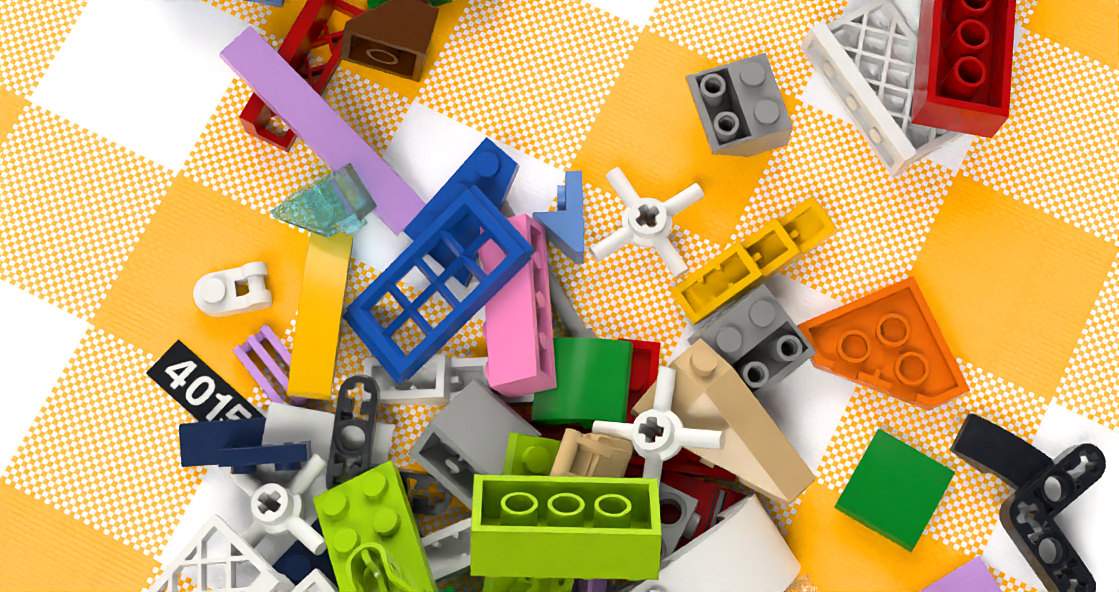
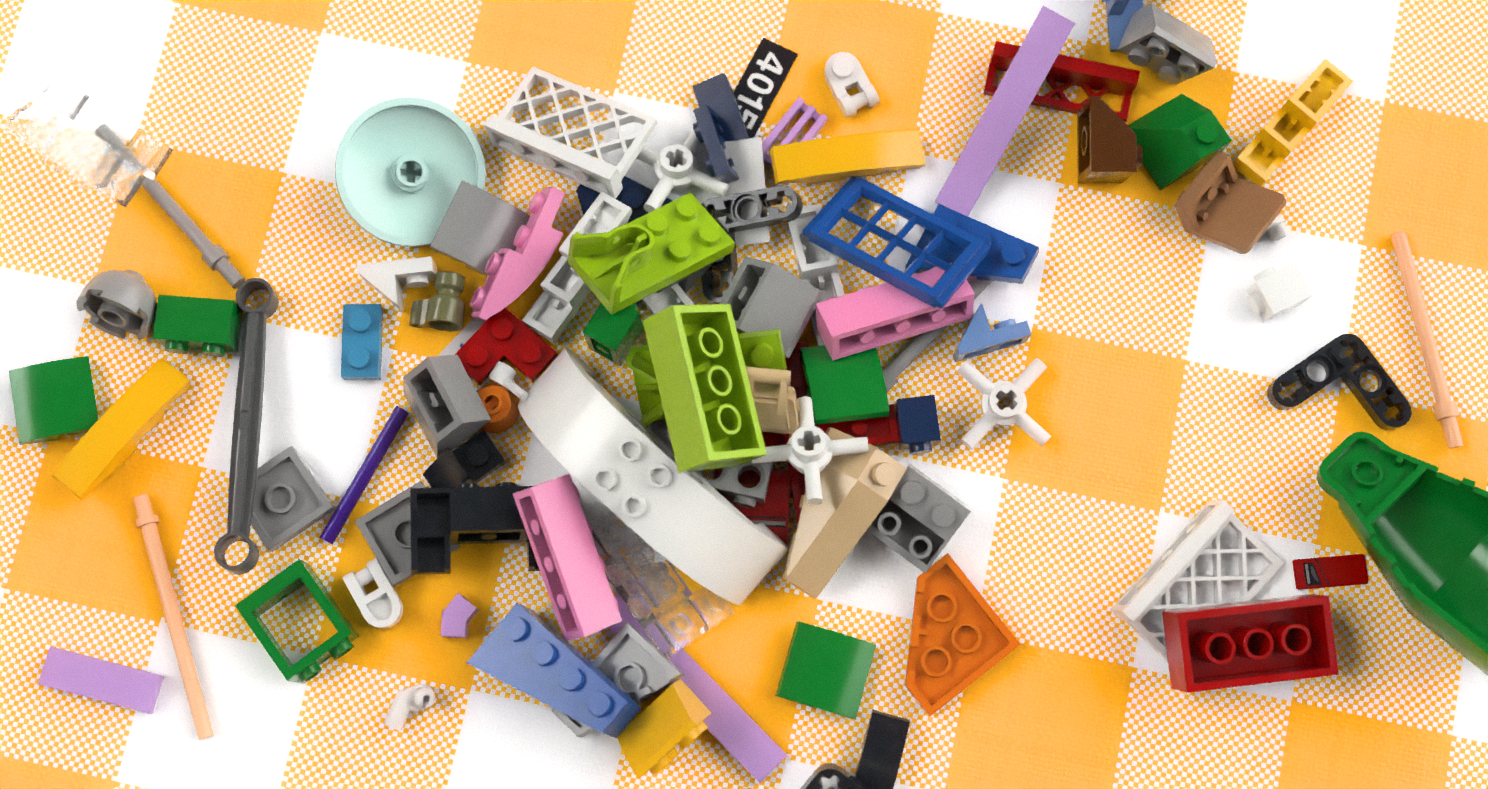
camera: 75 degrees right, 5 degrees up
(328, 204) = (941, 135): clear light blue slope -> none
(649, 317) = (917, 424): none -> dark blue brick
(741, 107) = (1130, 455): light grey slope -> none
(753, 260) = (997, 504): yellow slope -> none

